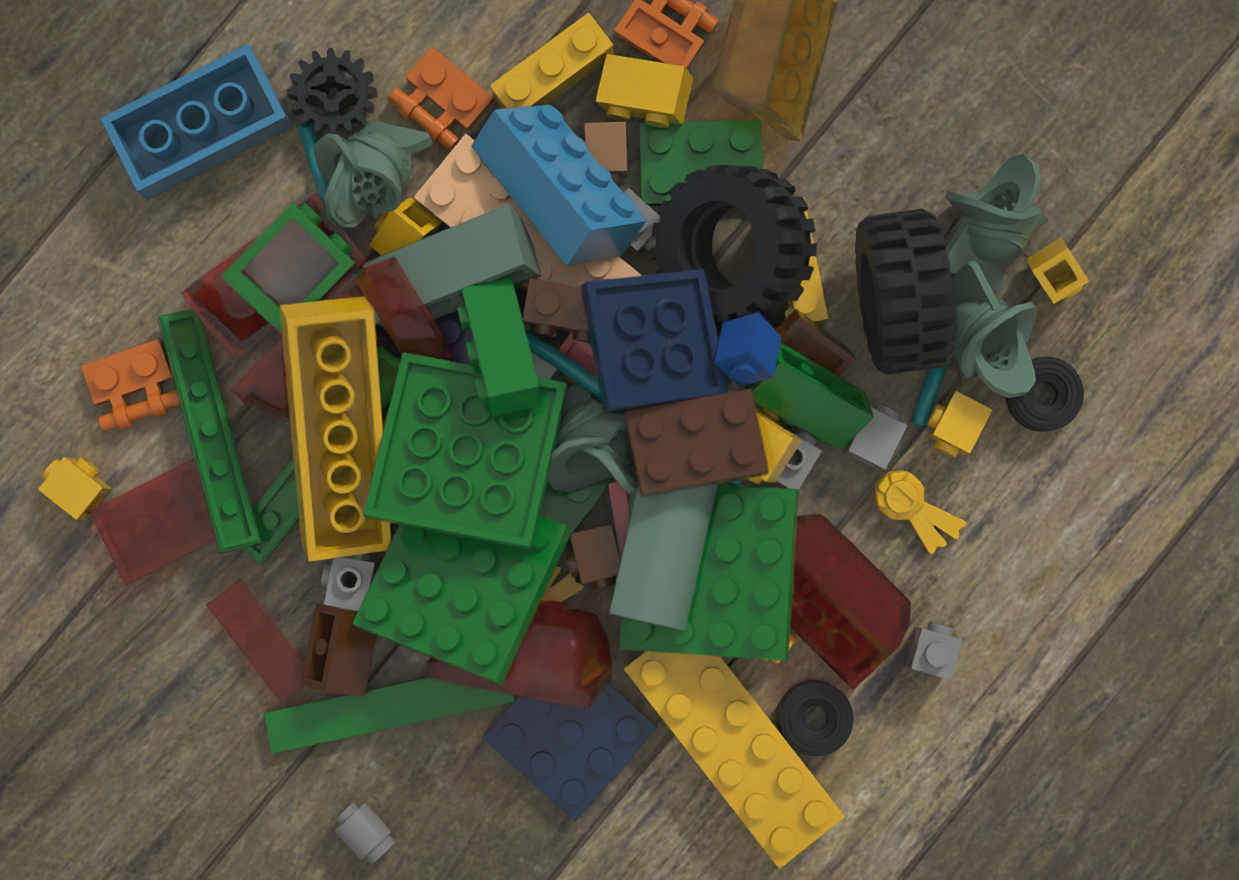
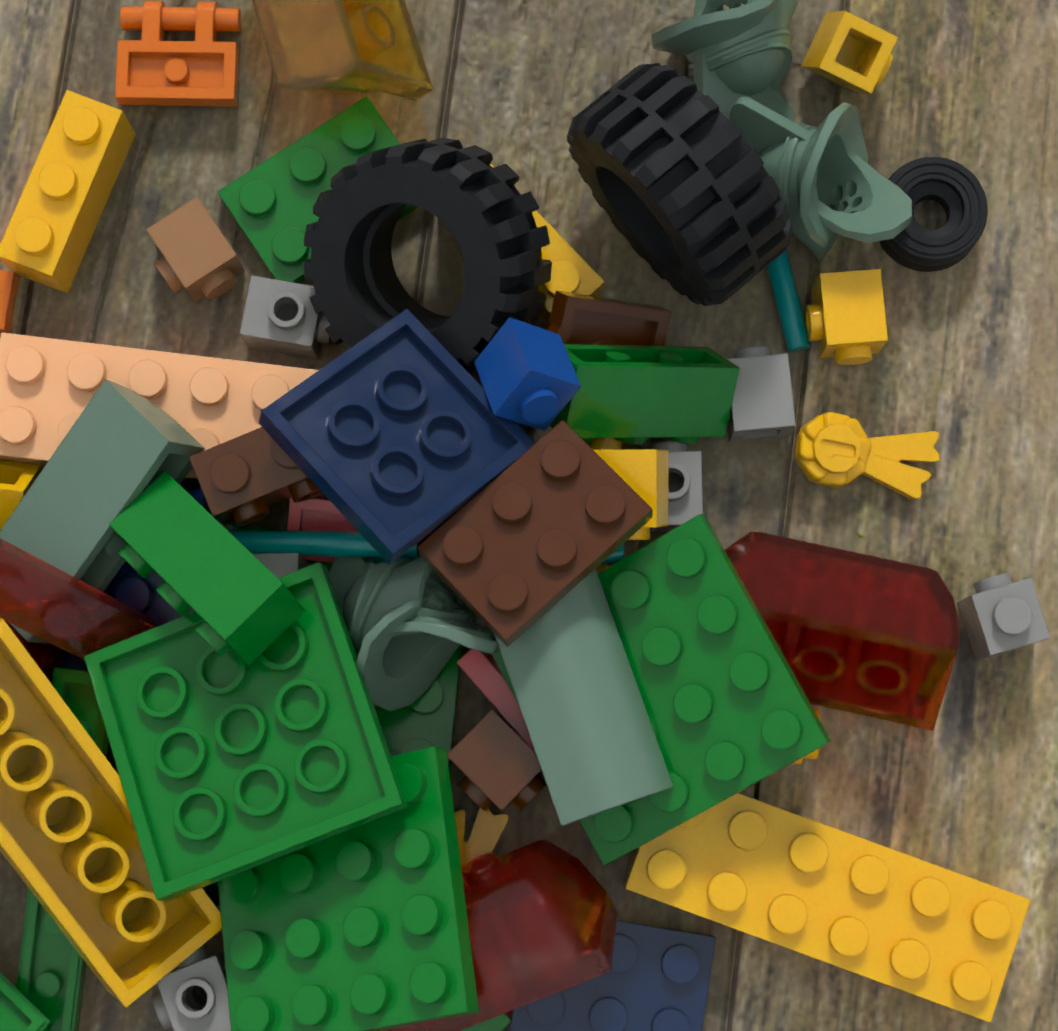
camera: 25 degrees left, 5 degrees down
(558, 183) = (156, 320): dark azure brick -> none
(644, 90) = (197, 145): yellow brick -> none
(832, 734) = (943, 791): black tyre -> none

